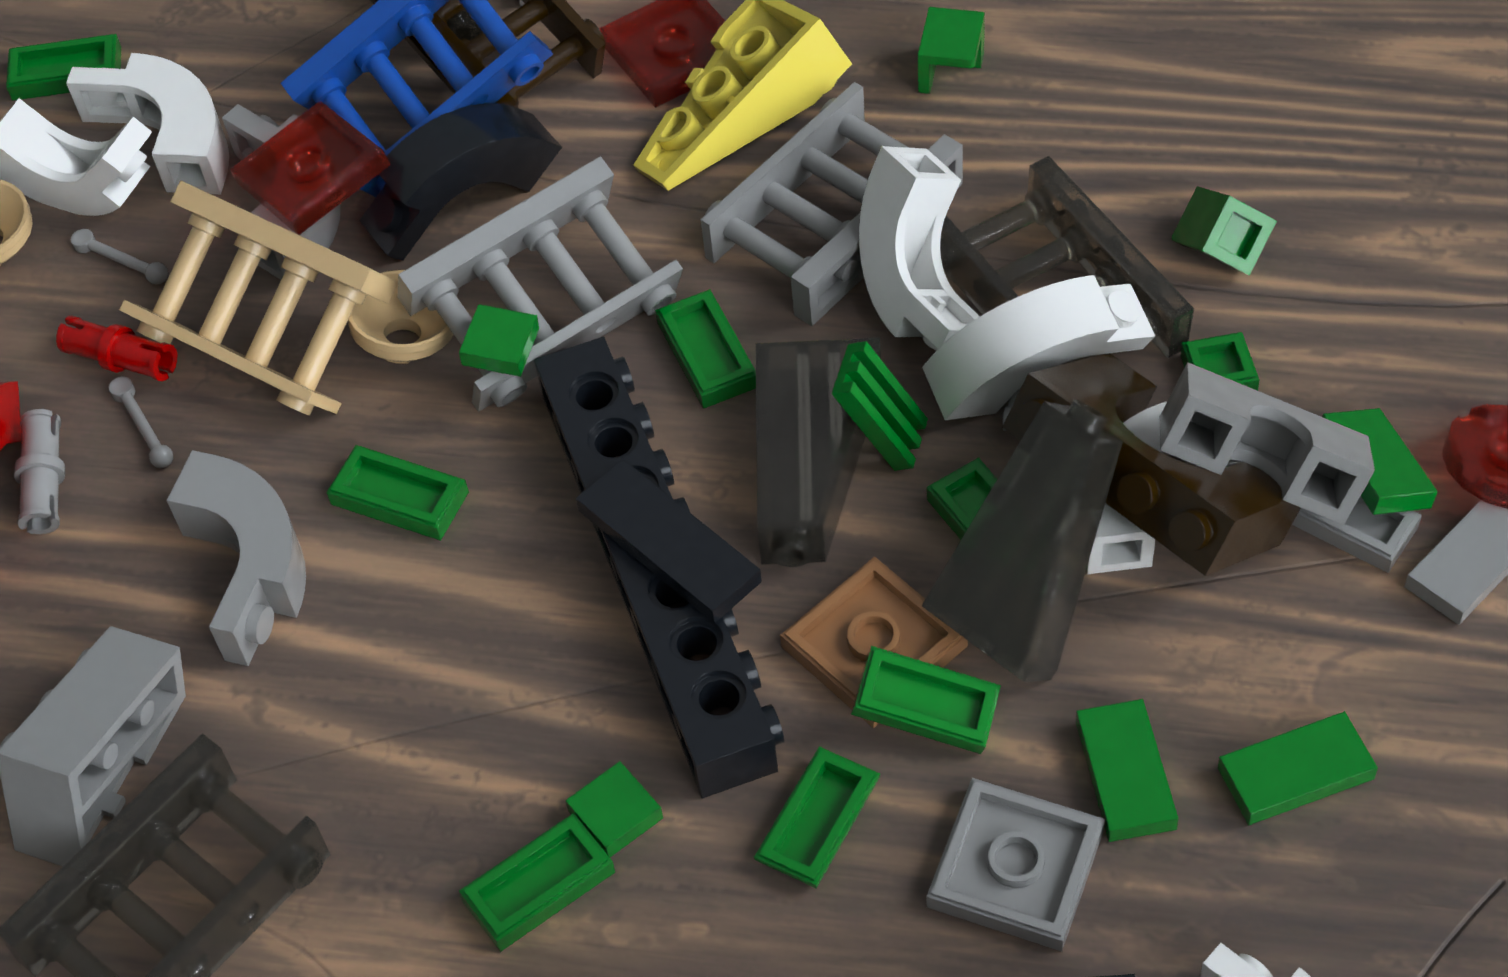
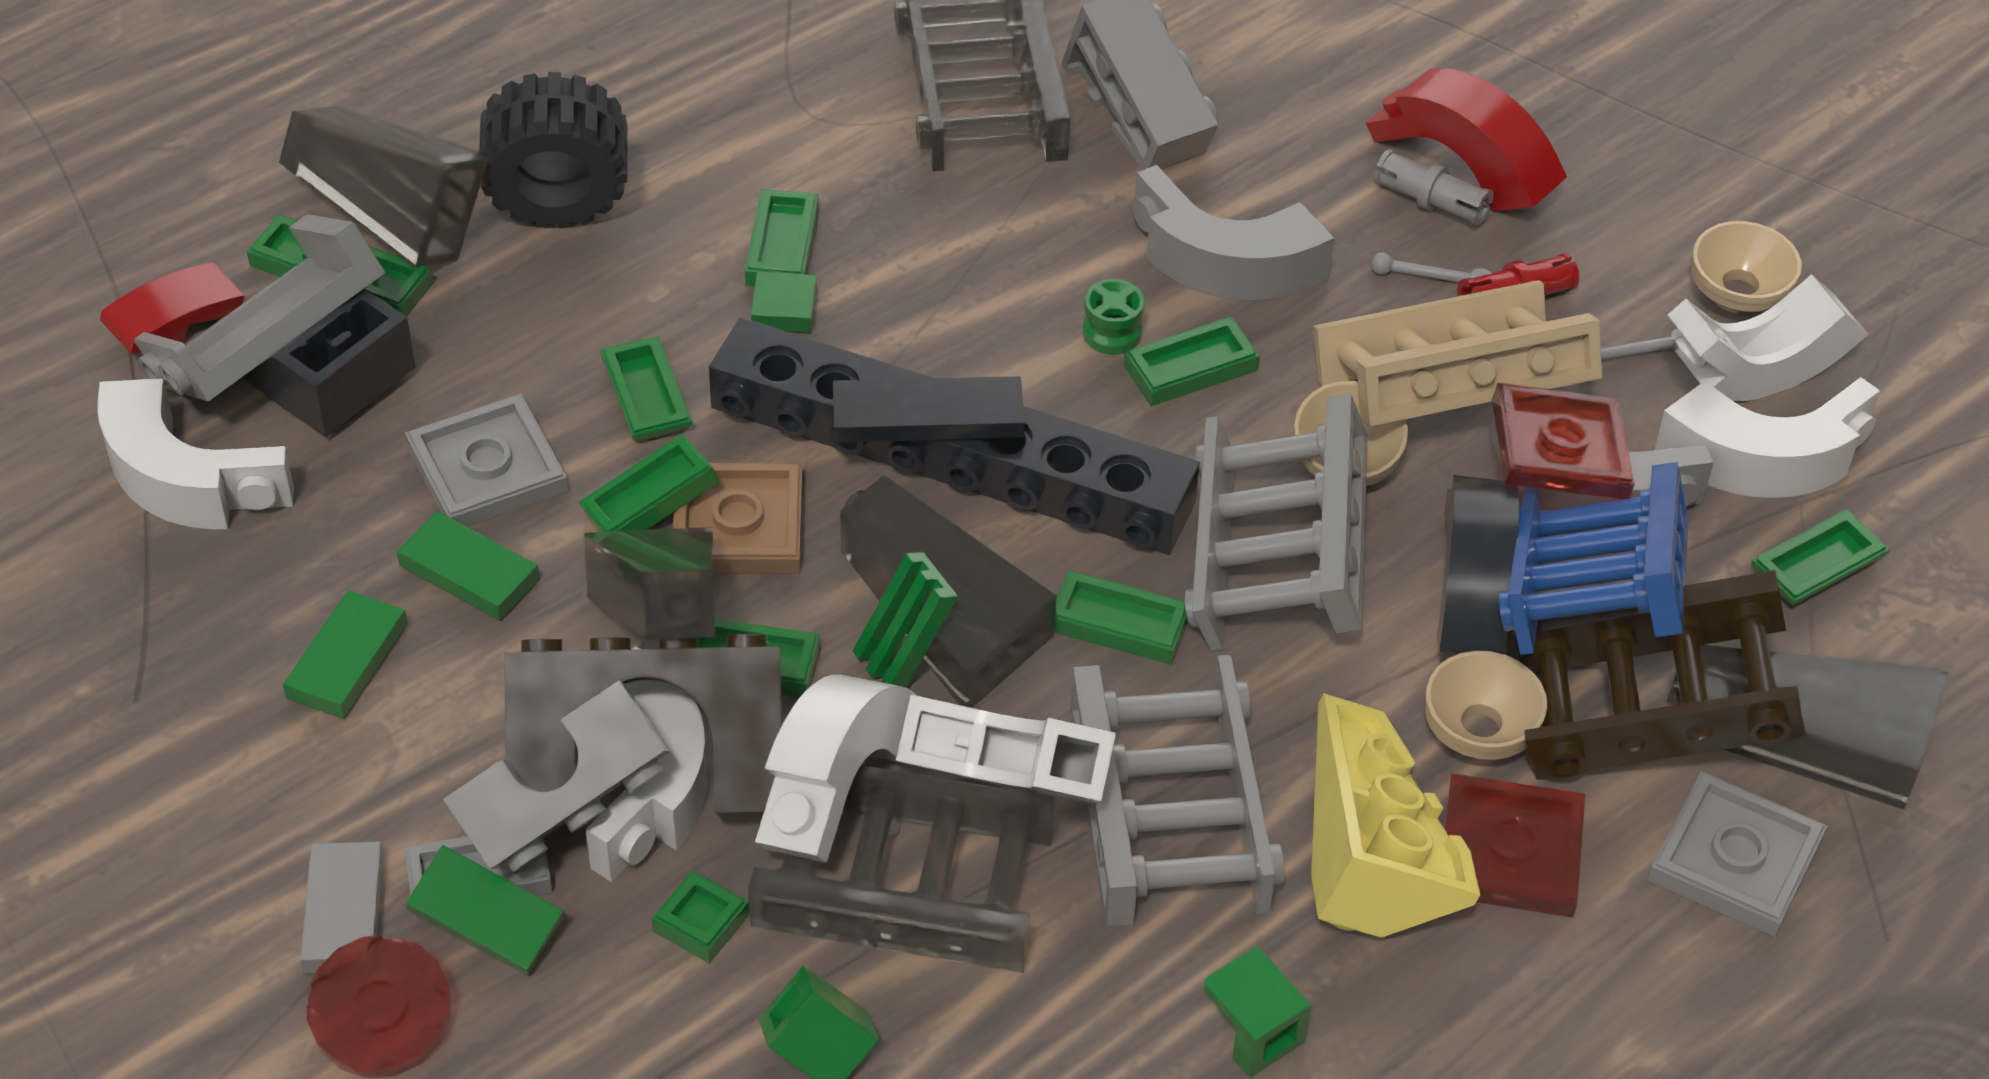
camera: 125 degrees right, 5 degrees down
(46, 67) = (1929, 433): green tile -> none
(254, 48) = (1820, 556): none -> green tile
(390, 554) = (1113, 316): none -> green wheel
(499, 340) = (1233, 440): green tile -> none
(583, 85) = (1489, 687): none -> tan piece

